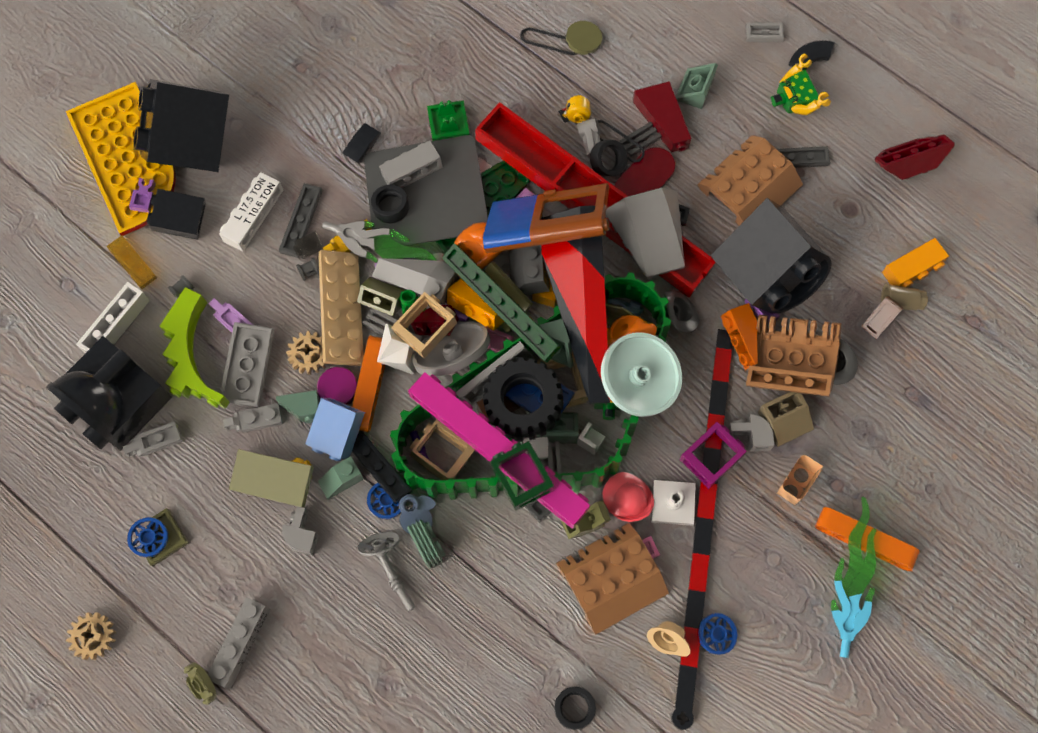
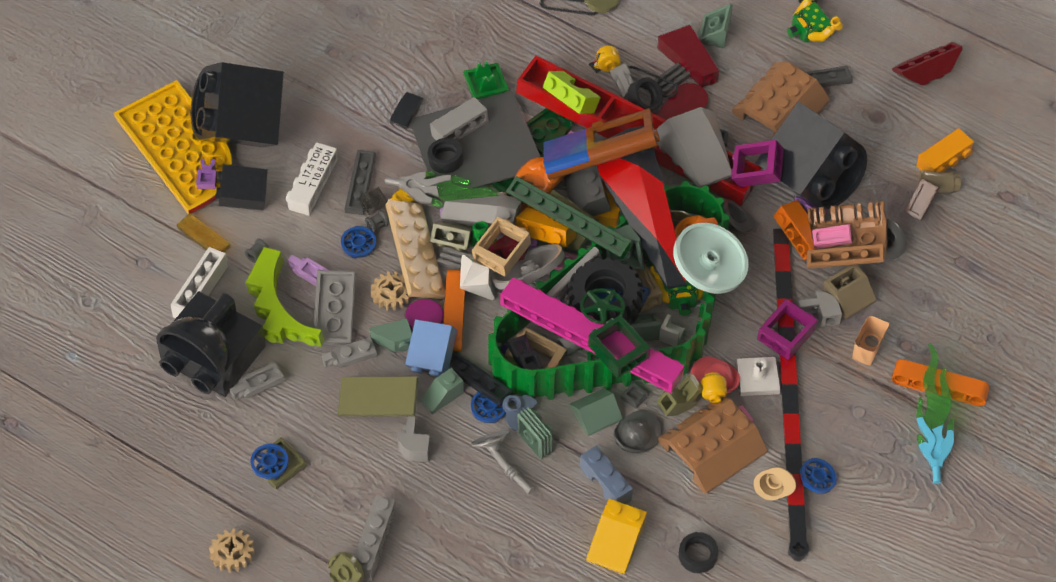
camera: 10 degrees left, 15 degrees down
(286, 289) = (358, 242): none -> blue wheel
(428, 455) = (523, 353): none -> black slope
(491, 677) = (617, 536): none -> yellow slope
(492, 605) = (599, 467): none -> sand blue arch
(496, 521) = (596, 411): none -> sand green slope
(514, 419) = (602, 306): none -> dark green wheel
(519, 141) = (562, 87): none -> lime arch
(535, 553) = (638, 432): none -> dark grey hat
(622, 517) = (713, 387): none -> yellow head
(729, 266) = (774, 163): none -> magenta window
(779, 351) = (832, 236): none -> bright pink tile

